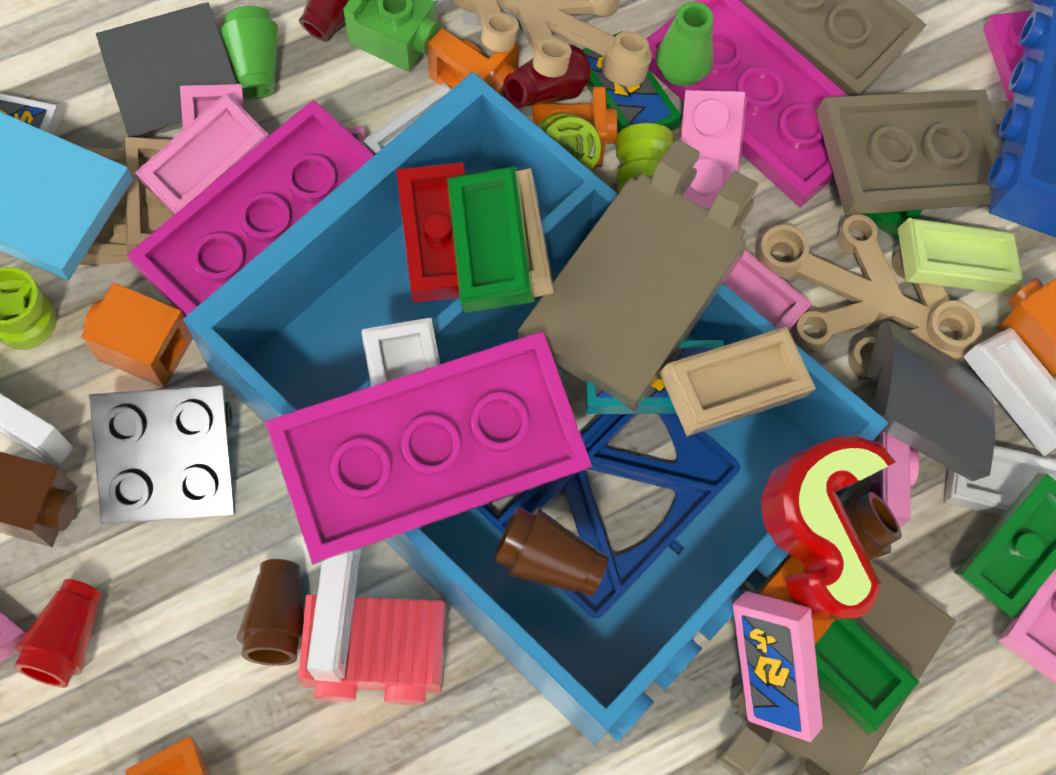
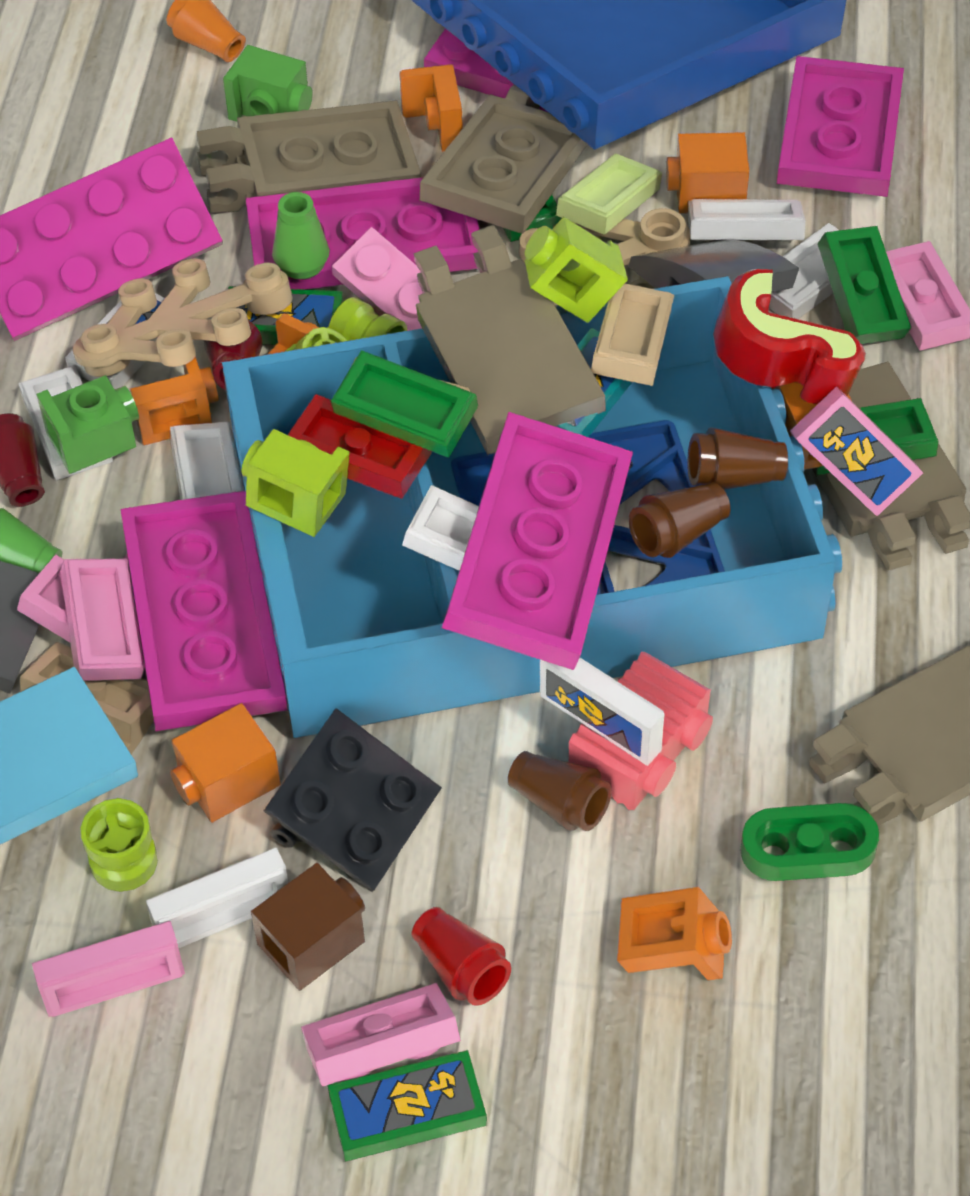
camera: 50 degrees left, 15 degrees down
(364, 206) = (294, 481): none -> lime brick
(654, 564) = (734, 459): none -> reddish brown cone
(761, 283) = (574, 268): none -> lime brick
(952, 51) = (435, 95): none -> orange bracket

